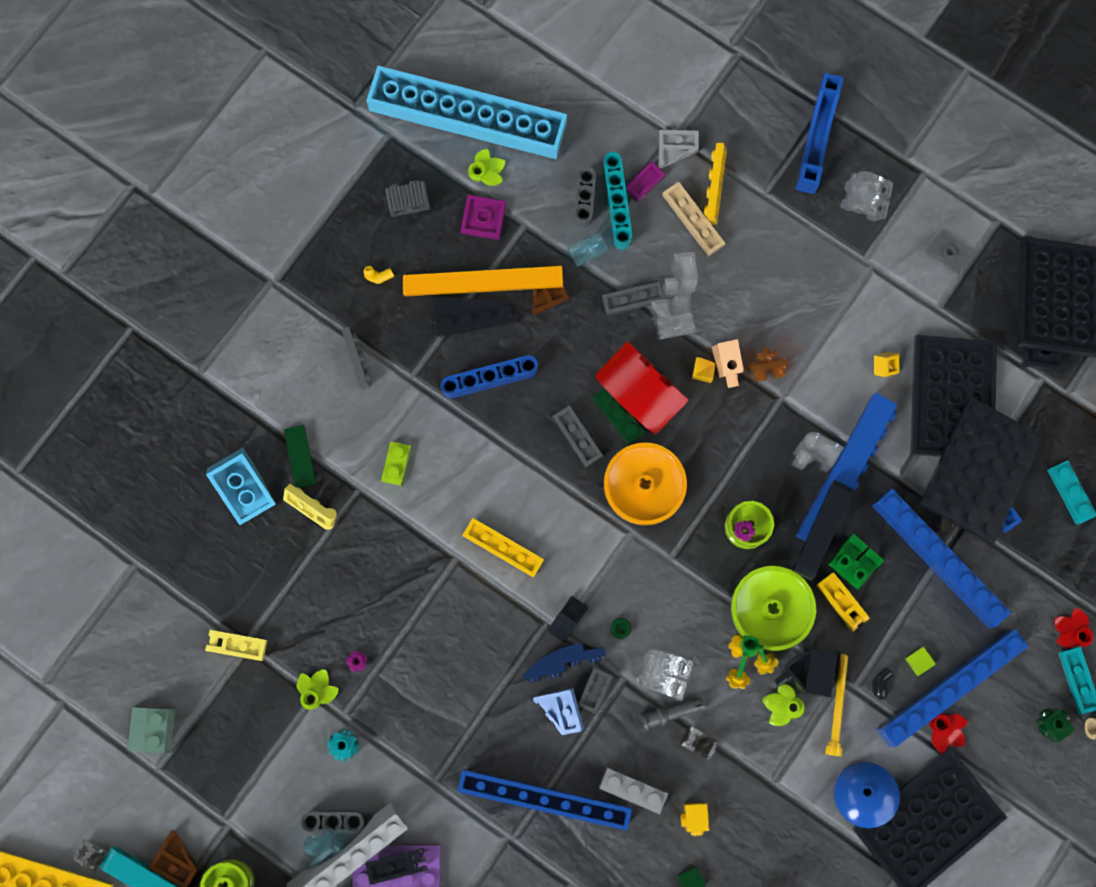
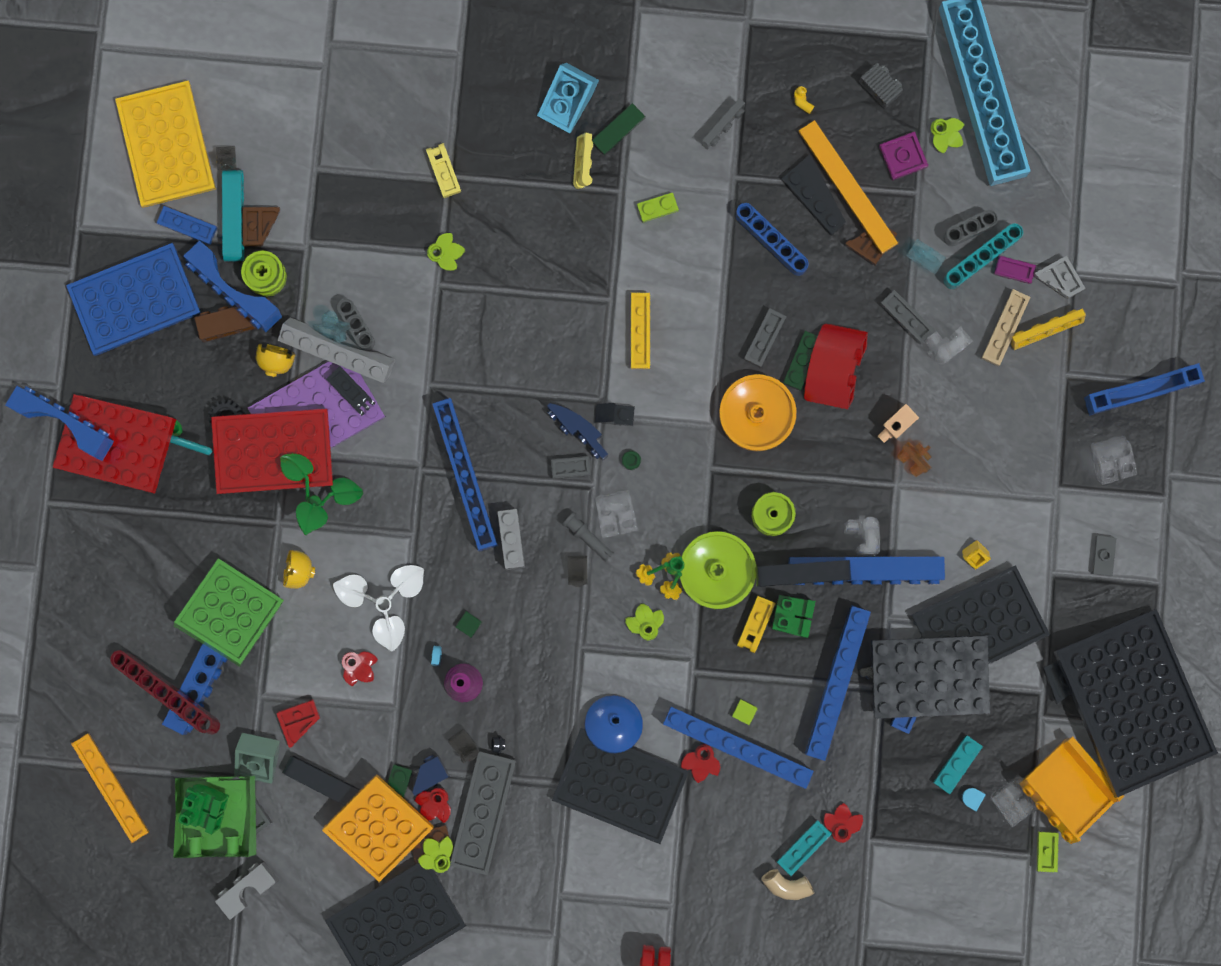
camera: 60 degrees right, 5 degrees up
(151, 730) = (343, 146): sand green slope -> none
(351, 742) = (416, 304): teal brick -> none
(356, 666) = (490, 270): magenta plate -> none
(562, 710) = (540, 450): wing -> none
(673, 324) = (902, 362): clear hips -> none
(695, 818) = (518, 600): yellow brick -> none
(703, 370) = (881, 408): yellow slope -> none
(739, 530) = (759, 510): magenta plate -> none
(810, 673) = (682, 625): black piece -> none
(834, 747) = (636, 679): yellow piece -> none
(879, 684) = (707, 689): black arm -> none
(1054, 724) = (762, 847): dark green brick -> none

